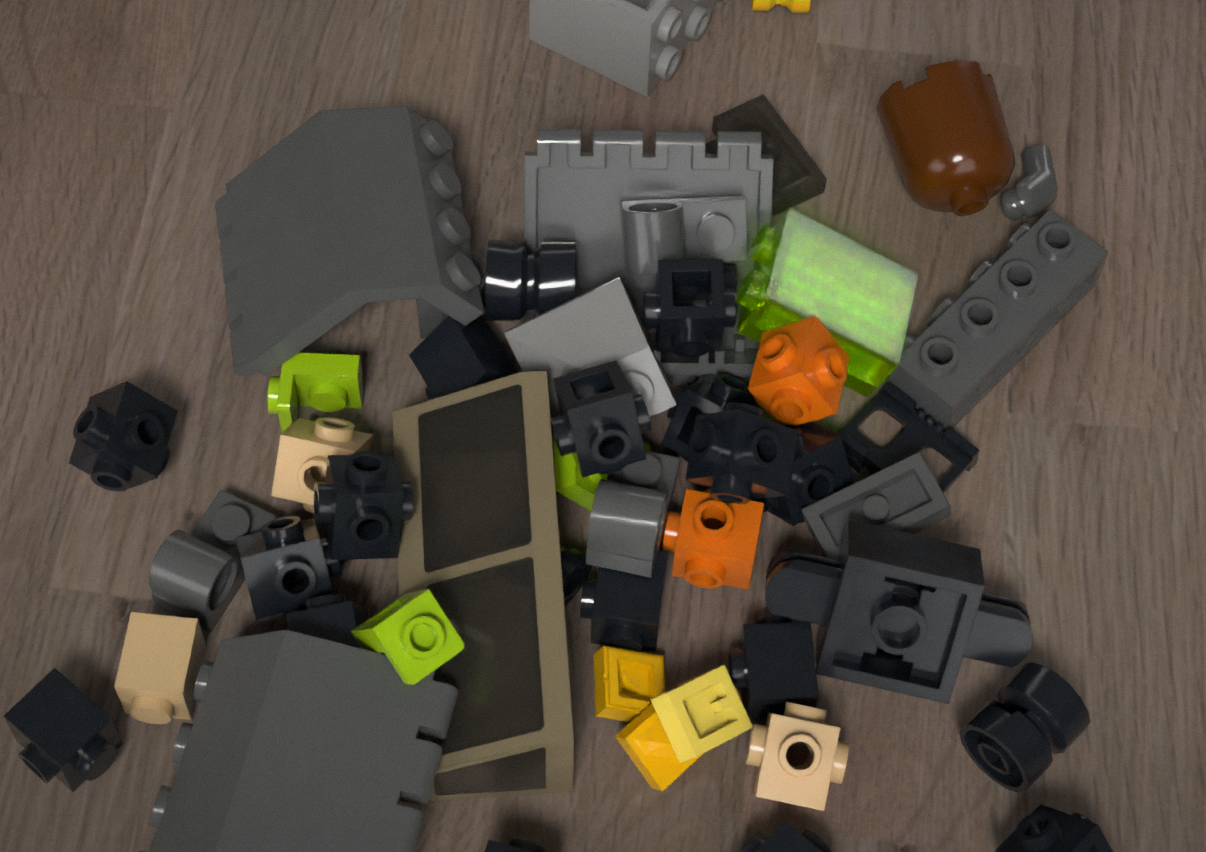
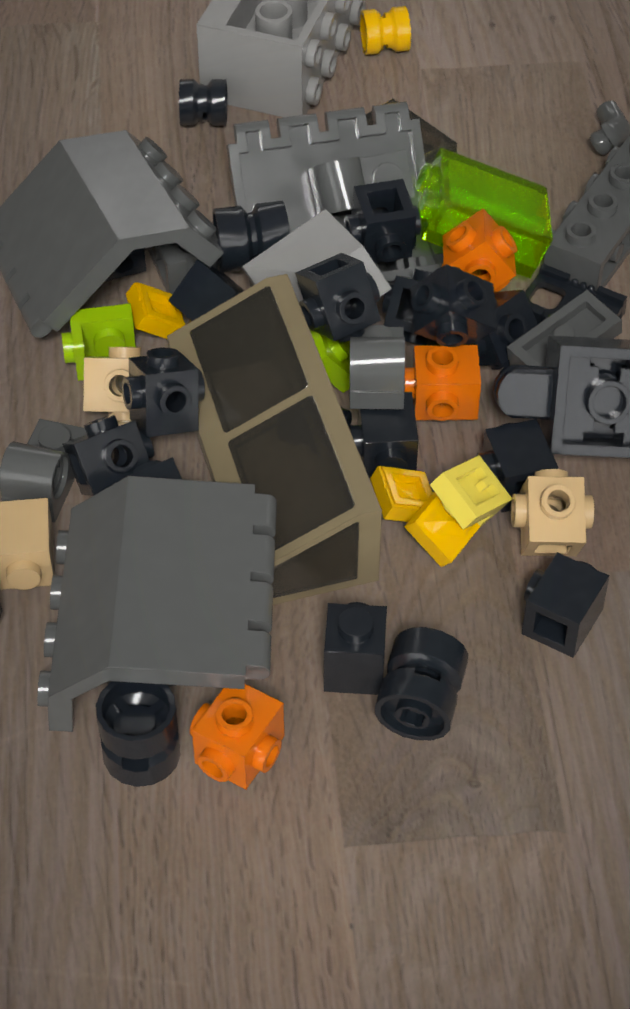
camera: 10 degrees left, 10 degrees down
(388, 363) = (153, 311): none -> yellow tile
(411, 635) = (232, 461): lime bracket -> none
(520, 55) = (203, 102): none -> black wheel
(949, 137) = (541, 98): reddish brown cylinder -> none

